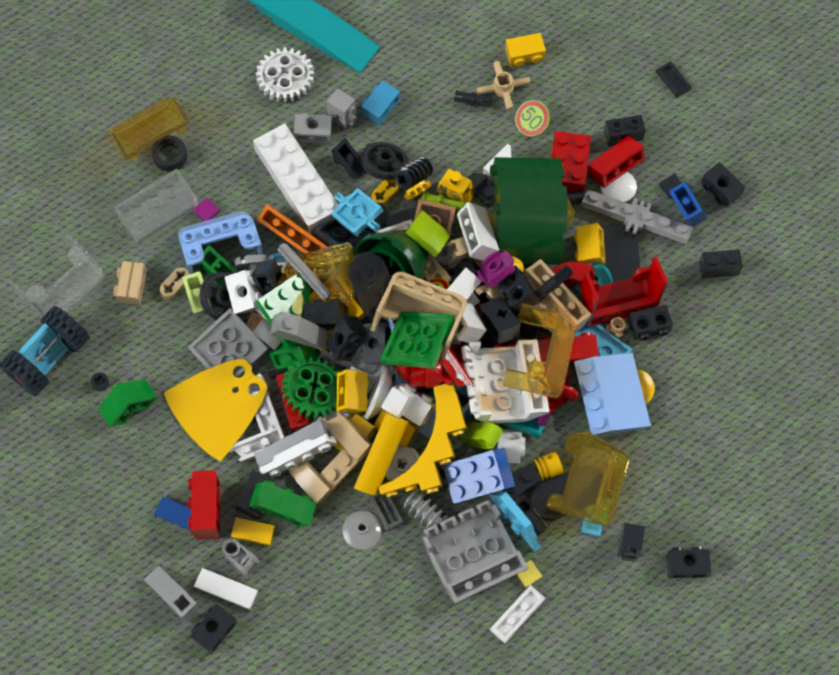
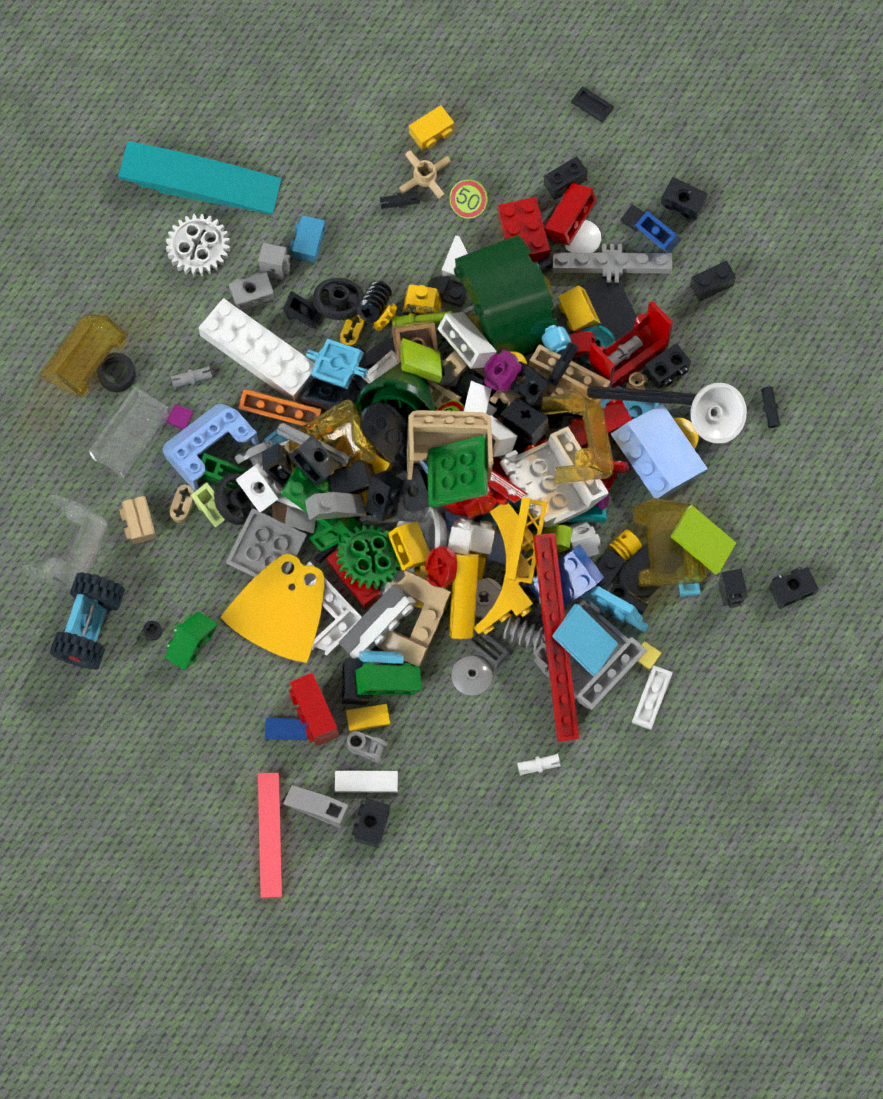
camera: 20 degrees left, 5 degrees up
(119, 604) = (269, 835): none -> coral tile
(230, 180) = (191, 377): none -> light grey pin
(284, 480) = (381, 657): none -> medium azure tile
(293, 292) = (317, 469): none -> black brick
(369, 419) = (441, 566): none -> red tile
(387, 635) = (539, 764): none -> white pin
(448, 524) = (557, 656): none -> red plate
(449, 420) = (519, 537): none -> yellow fence
(474, 536) = (585, 639): none -> medium azure tile
(557, 259) = (555, 339): none -> medium azure head
(615, 294) = (624, 351): none -> light grey pin
(621, 487) = (703, 539): none -> lime tile
(623, 341) = (640, 395): none -> black axle
(691, 380) = (728, 413): none -> white dish
(730, 393) = (770, 407): none -> black pin

